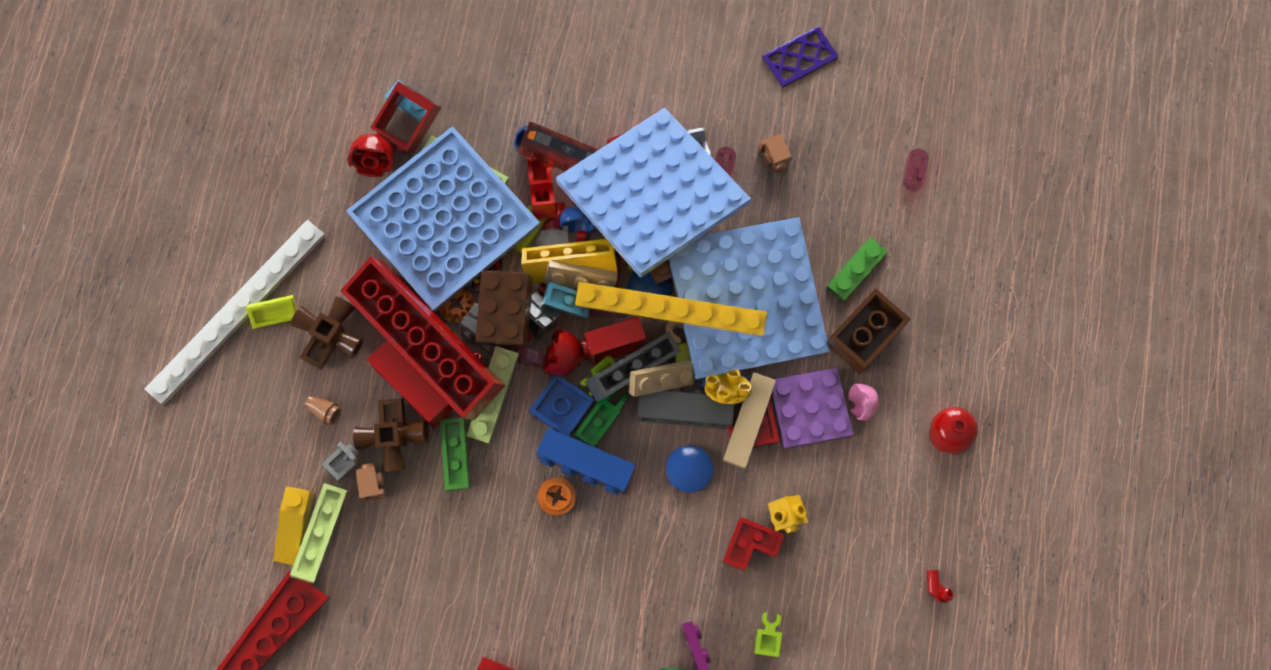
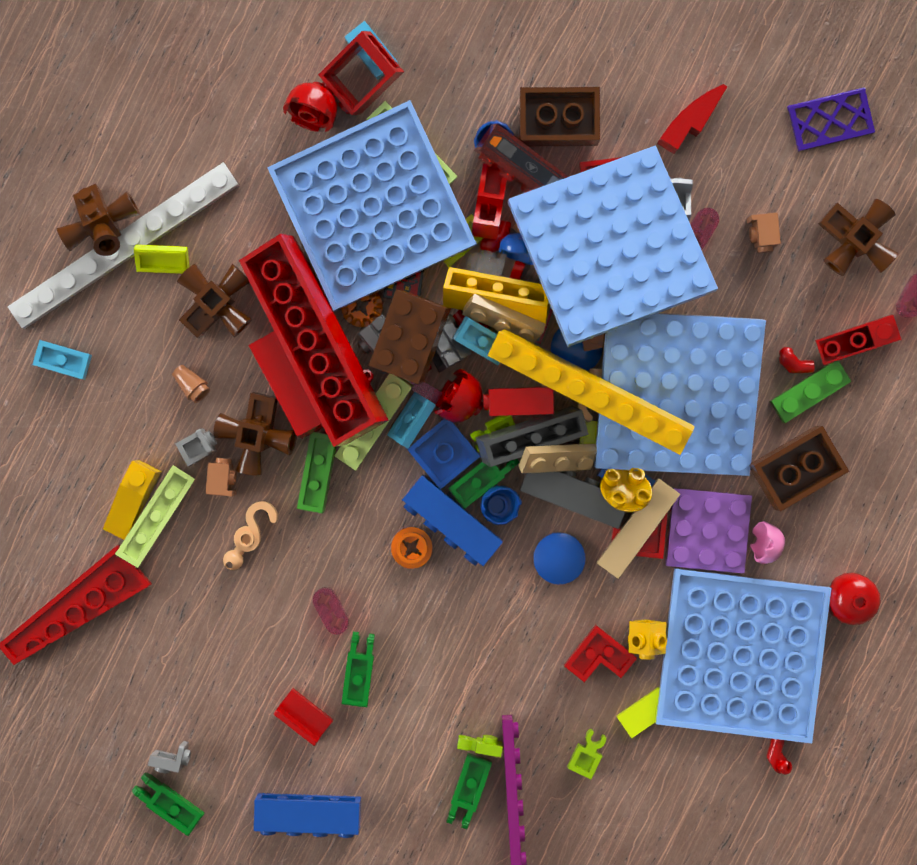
camera: 20 degrees right, 15 degrees up
(203, 420) = (62, 359): none -> medium azure plate
(209, 293) = (98, 220): none -> reddish brown brick
(407, 529) = (249, 536): none -> light nougat piece
(495, 578) = (336, 607): none -> clear pink beam
(525, 385) = (411, 420): none -> medium azure plate
(540, 623) = (358, 673): none -> green hinge
(580, 107) = (559, 116): none -> reddish brown brick
(624, 435) = (500, 505): none -> blue hair
(676, 653) = (487, 745): none -> lime plate
(687, 84) = (691, 119): none -> red slope
(807, 584) = (640, 714): none -> neon yellow tile
(834, 251) = (793, 364): none -> red arm
(852, 136) = (858, 236): none -> reddish brown brick
(876, 507) = (743, 655): none -> light blue plate
(882, 214) = (858, 339): none -> red slope

